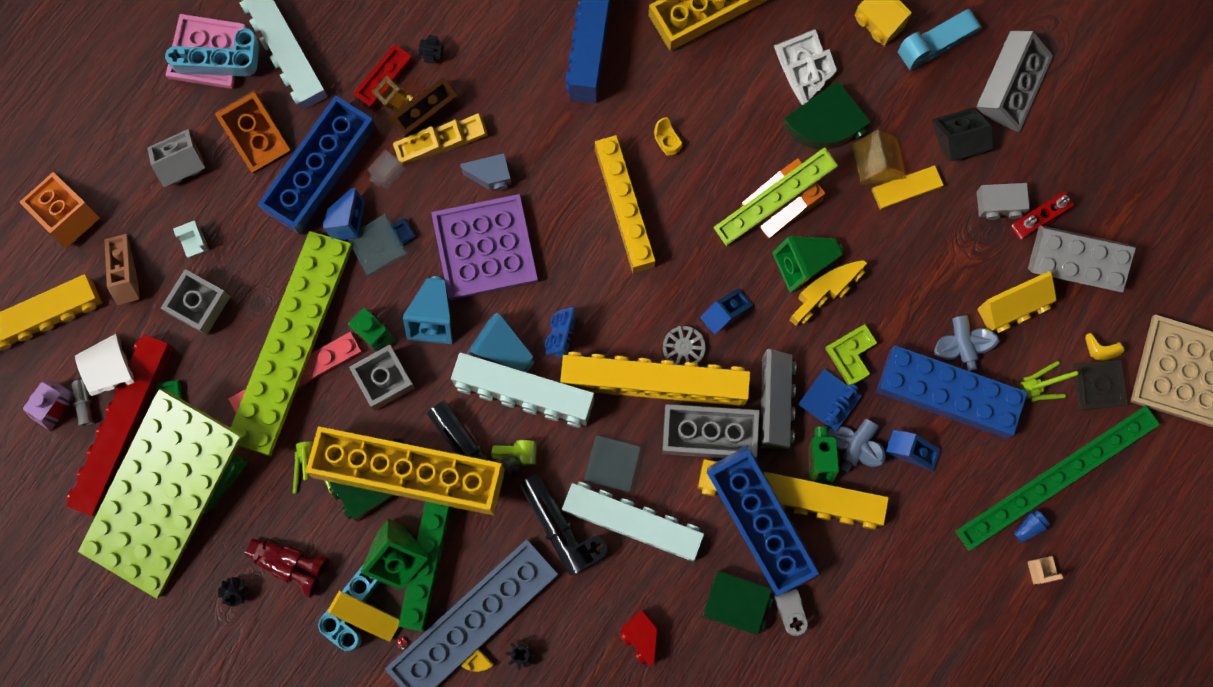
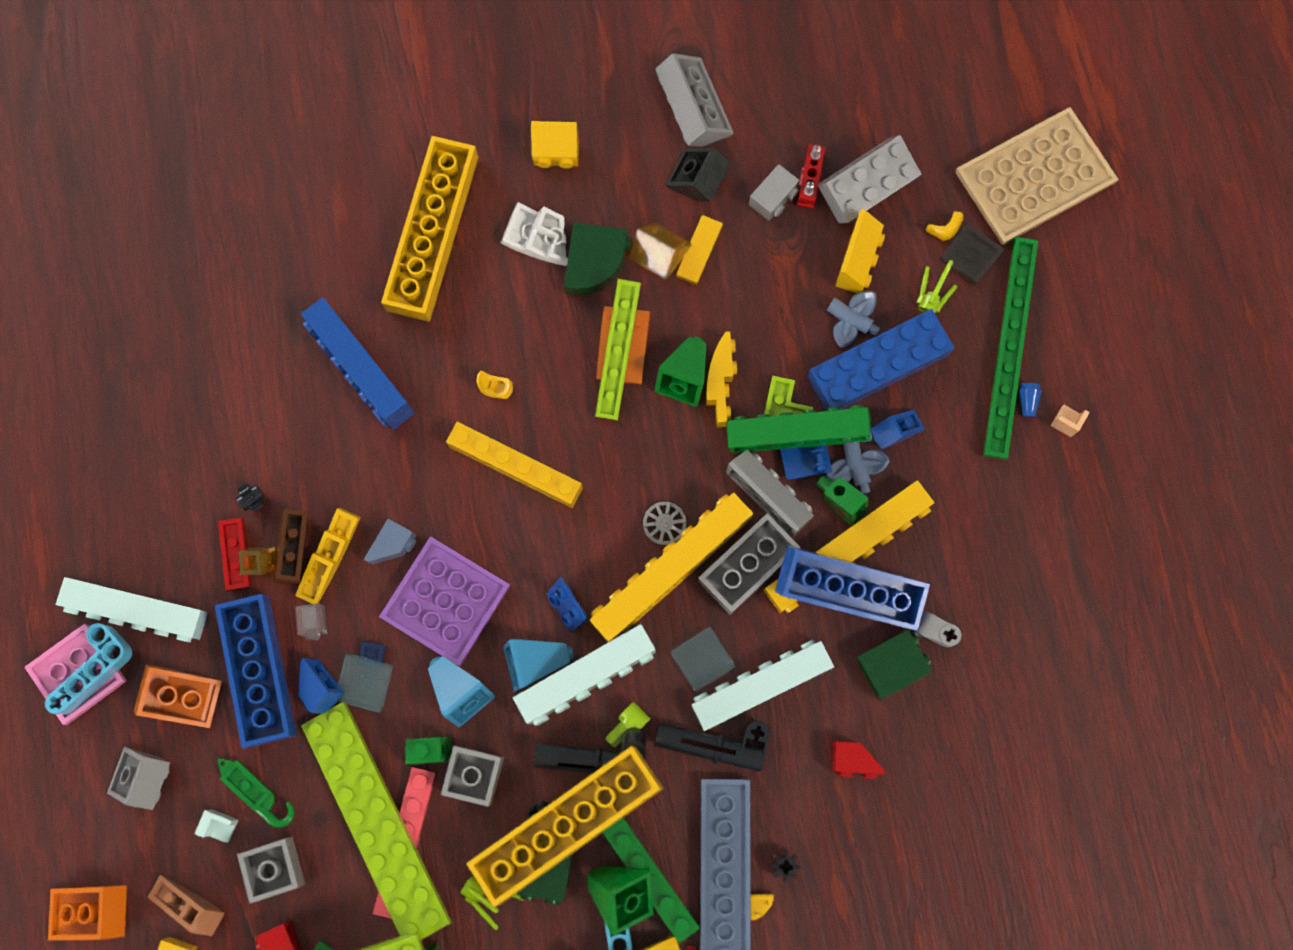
camera: 45 degrees left, 0 degrees up
(236, 241) = (253, 791): none -> green plate
(726, 311) = (667, 466): blue slope -> none
(842, 378) = (799, 430): none -> green brick
(922, 48) = (608, 138): medium azure beam -> none

